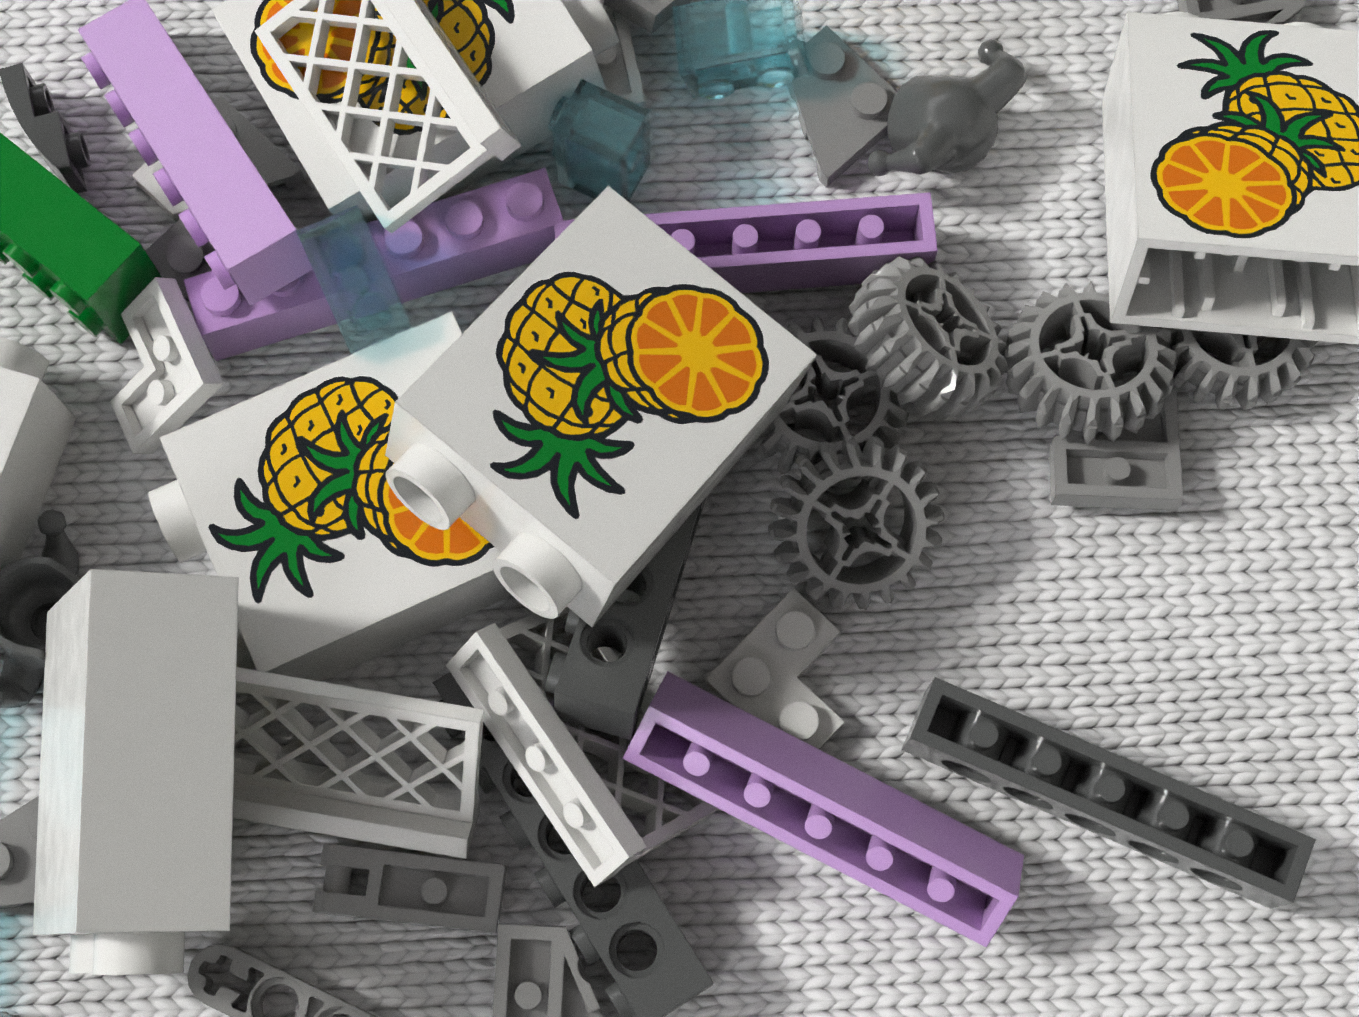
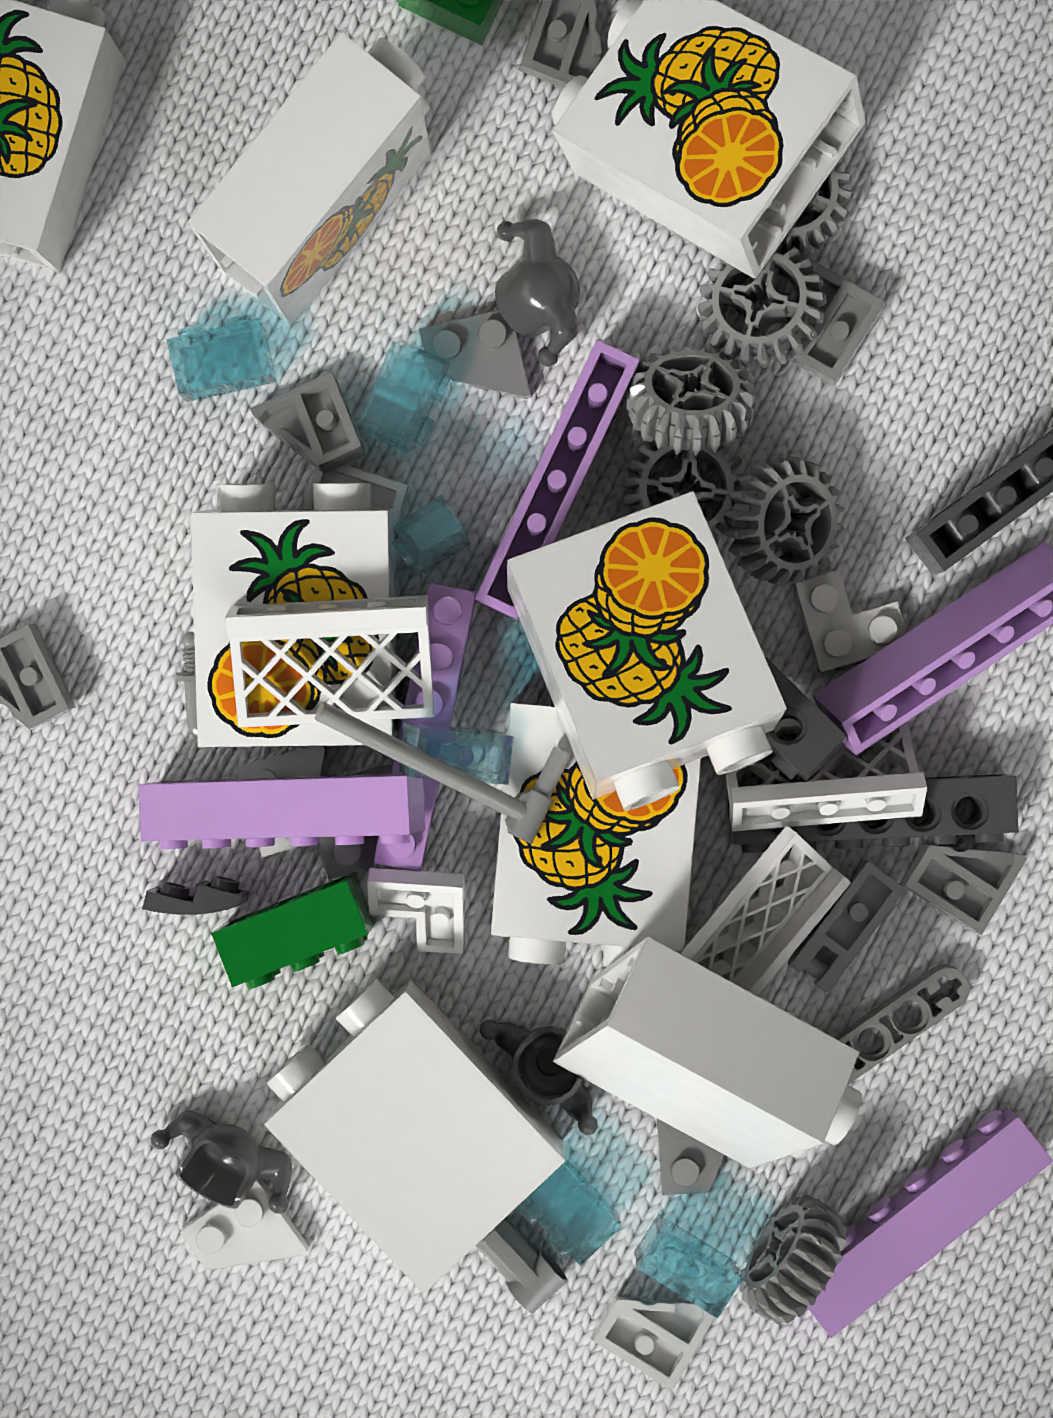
camera: 60 degrees left, 15 degrees up
(325, 388) = (523, 813): none -> light grey bar

